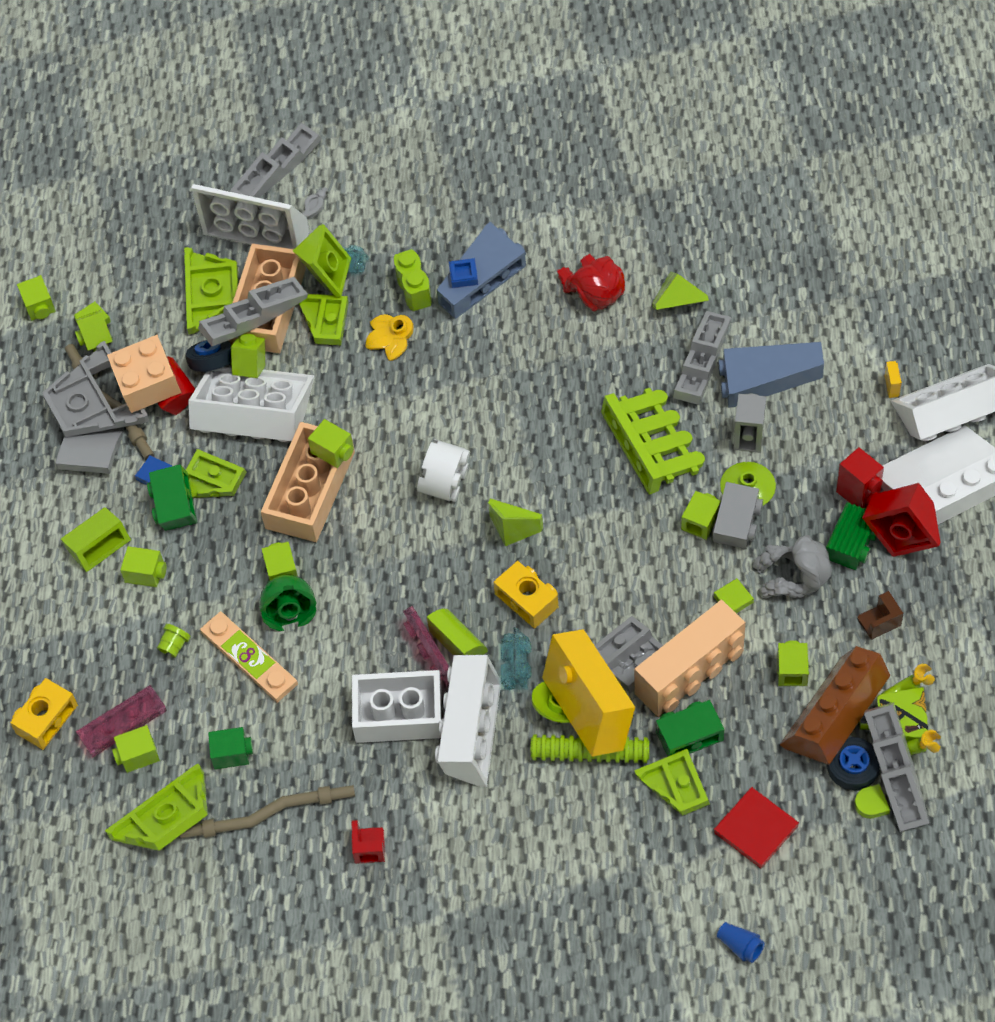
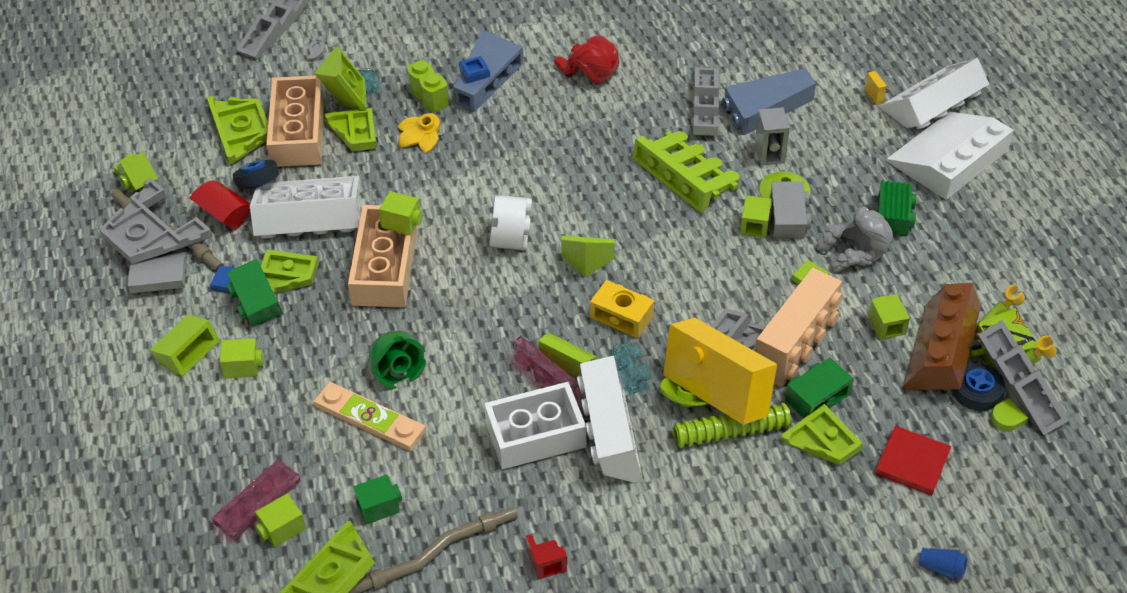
camera: 20 degrees left, 10 degrees down
(36, 298) = (72, 159): lime brick -> none
(41, 729) = (184, 498): yellow brick -> none
(144, 373) = (199, 191): light nougat brick -> none
(172, 640) = (289, 415): lime piece -> none
(248, 356) = (294, 166): lime brick -> none
(249, 218) = (256, 57): white slope -> none
(259, 308) = (293, 124): light grey slope -> none
(279, 560) = (373, 324): lime brick -> none
(677, 292) = (667, 54): lime slope -> none
(859, 478) = (886, 159): red brick -> none
(883, 617) = (950, 265): reddish brown panel -> none
(903, 520) = (939, 181): red slope -> none

